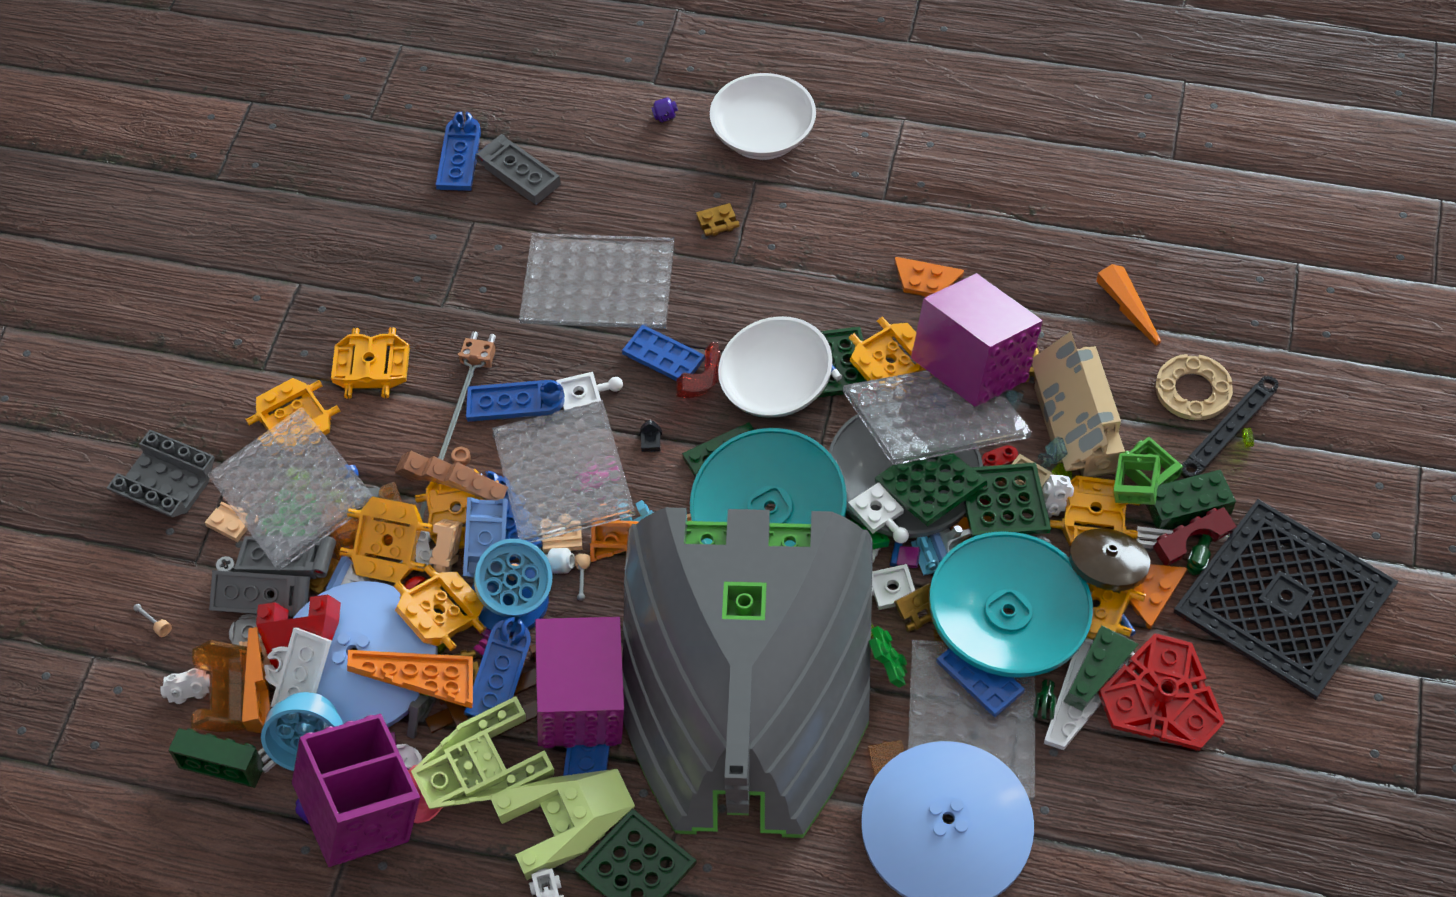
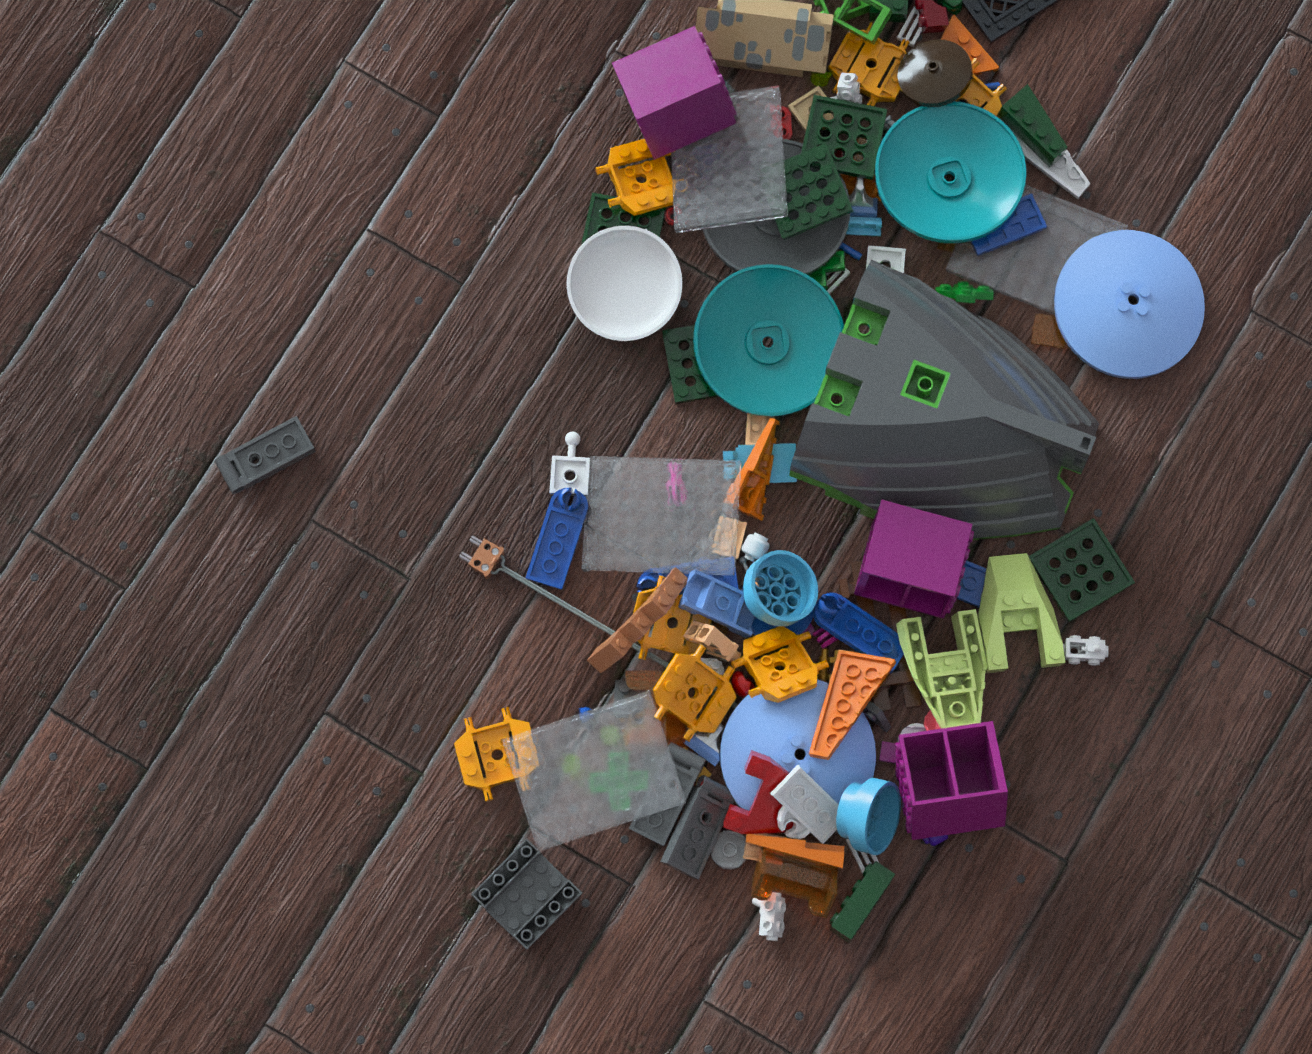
camera: 70 degrees left, 20 degrees up
(161, 627) = (695, 930): light nougat hinge -> none
(226, 522) = (597, 845): light nougat plate -> none
(229, 564) = (650, 858): light grey bush -> none
(370, 373) = (471, 673): light orange piece -> none
(458, 153) = (218, 509): blue plate -> none
(461, 455) = (601, 607): nougat tile -> none
(582, 562) = (764, 528): hinge -> none
(597, 280) = (439, 419): clear plate -> none
(650, 436) = (646, 426): black tile -> none
(662, 353) = (554, 384): blue plate -> none
(664, 109) = (242, 286): dark purple head -> none
(698, 384) = (602, 352): clear red arch -> none
(719, 215) = (400, 281): pearl gold plate -> none
(762, 115) = (299, 191): white dish -> none
(874, 519) = (819, 238): white plate -> none
(908, 556) = (859, 241): magenta tile -> none
(912, 604) = (912, 252): pearl gold plate -> none
(924, 277) = (553, 112): orange wing -> none
(1045, 700) = (1045, 182): dark green arm -> none
(1054, 452) = (801, 75): clear light blue plate -> none
(1139, 703) = (1071, 105): red plate -> none

